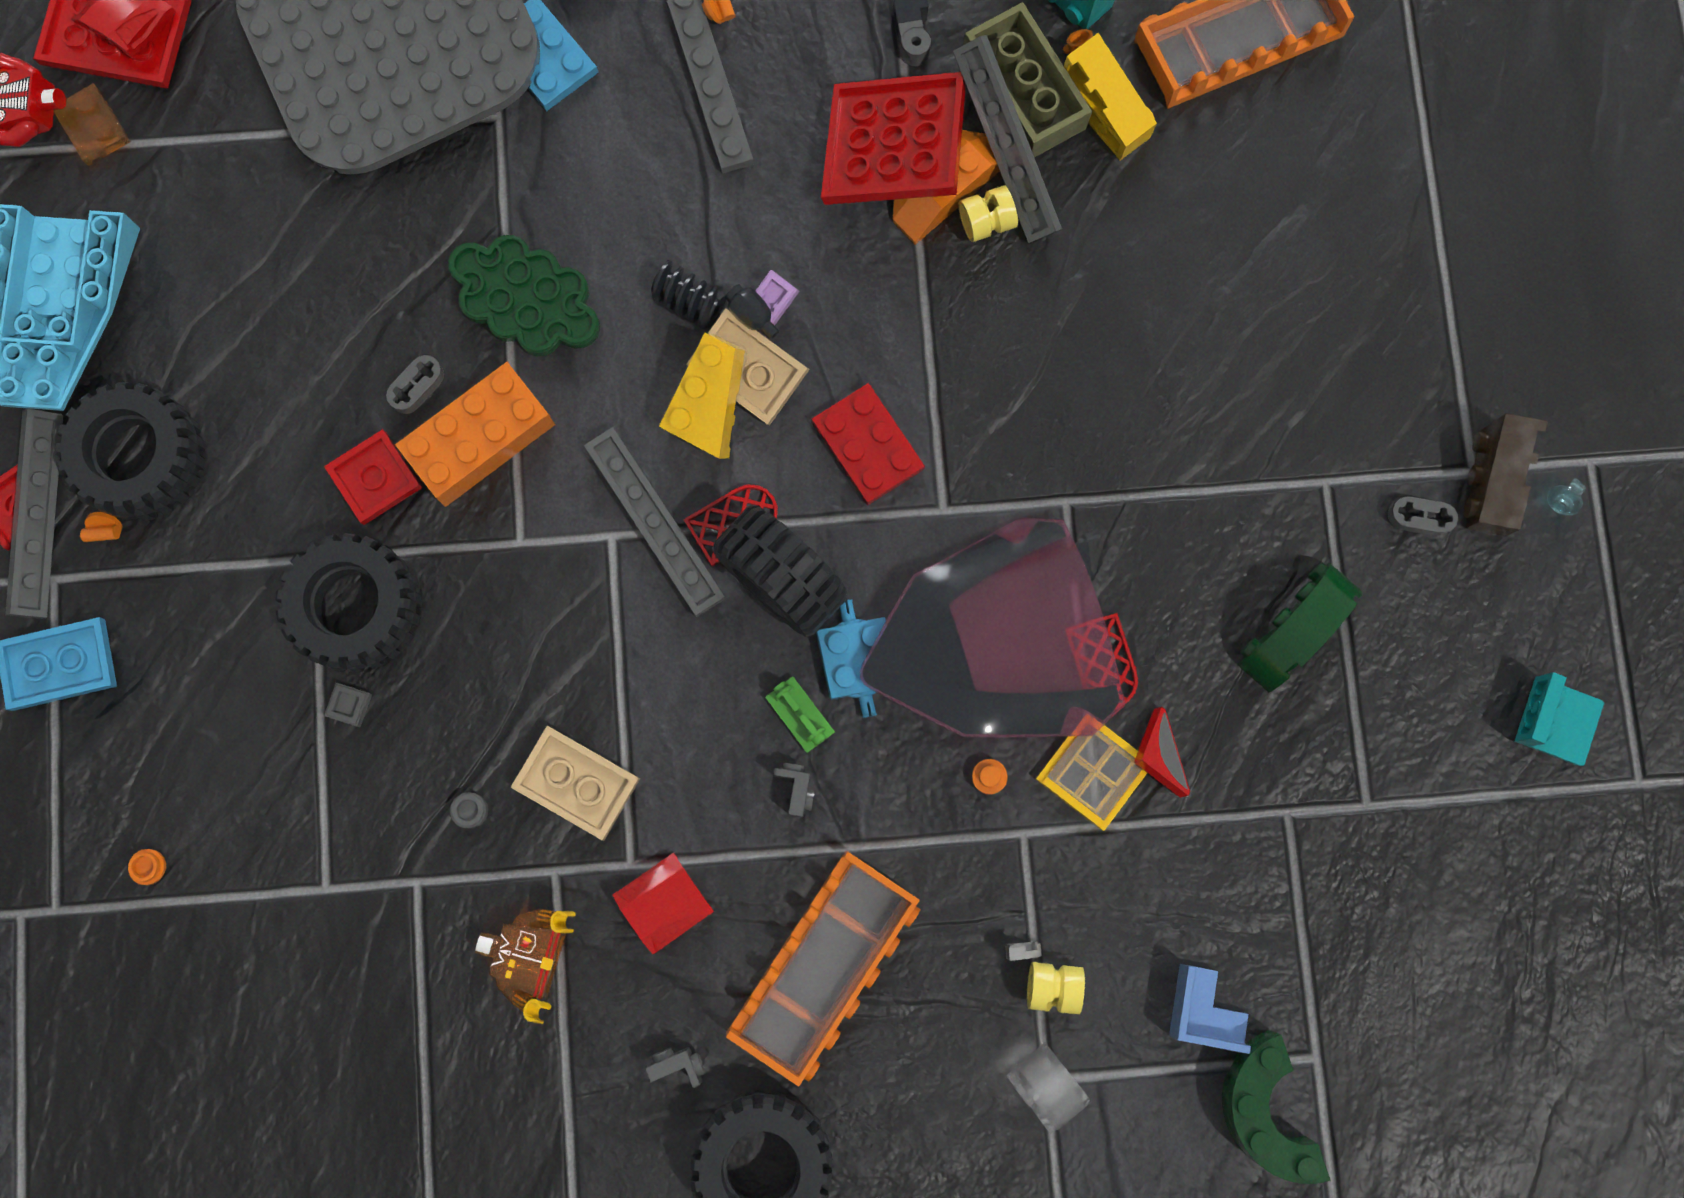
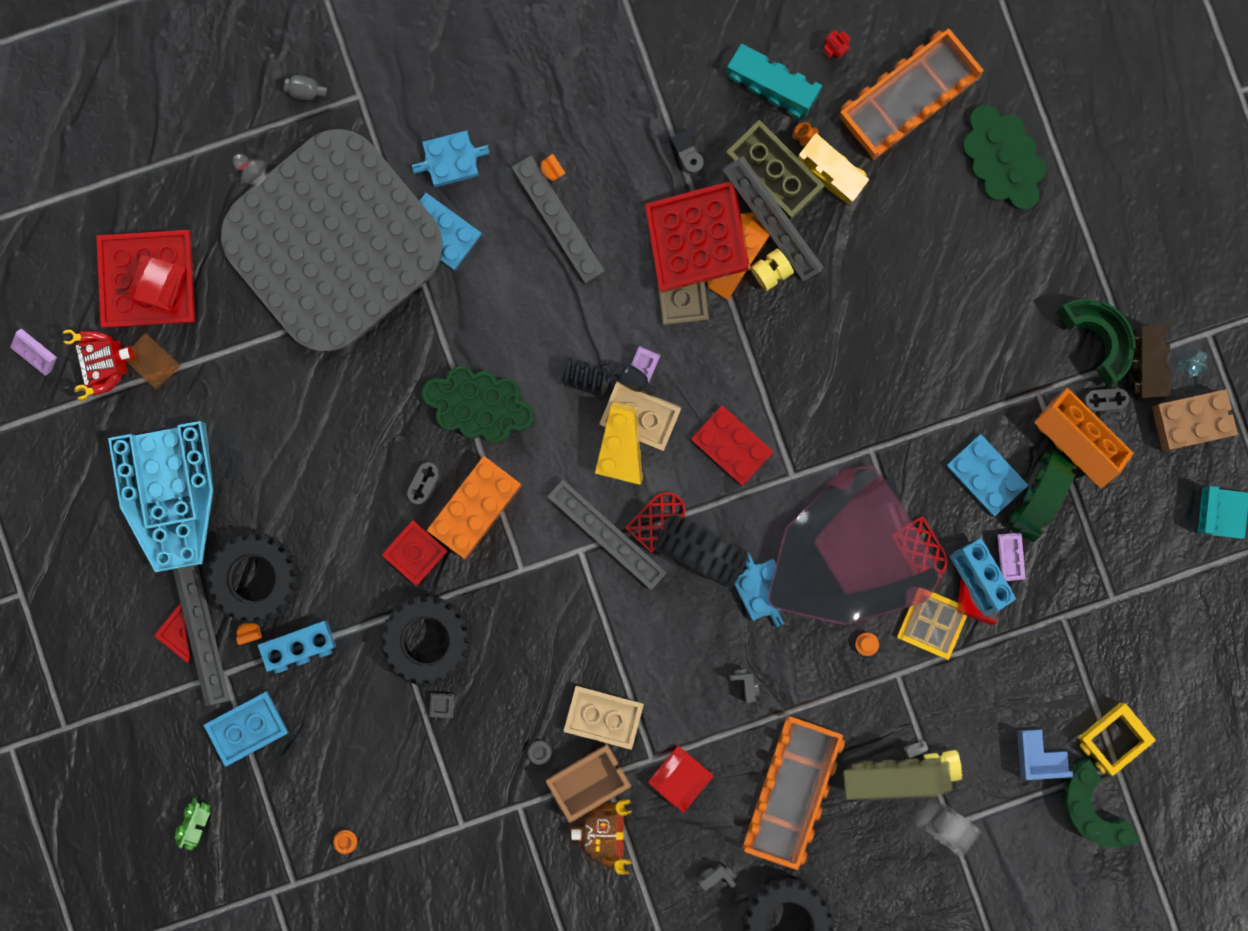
camera: 15 degrees left, 5 degrees up
(152, 555) = (285, 646): none -> dark azure brick
(523, 872) = (588, 783): none -> medium nougat piece
(799, 714) = (735, 636): bright green hinge -> none
(853, 231) = (684, 305): none -> dark tan tile
(982, 988) = (898, 780): none -> olive brick
(1184, 721) = (982, 577): none -> dark azure brick
(1224, 579) = (987, 475): none -> dark azure plate
(1232, 703) = (1011, 556): none -> lavender plate
(1353, 148) = (1004, 157): none -> dark green plate
(1358, 998) = (1135, 726): none -> yellow window
(1380, 557) = (1084, 438): none -> orange brick
(1453, 410) = (1110, 327): none -> dark green brick
(1547, 575) = (1194, 420): none -> medium nougat piece

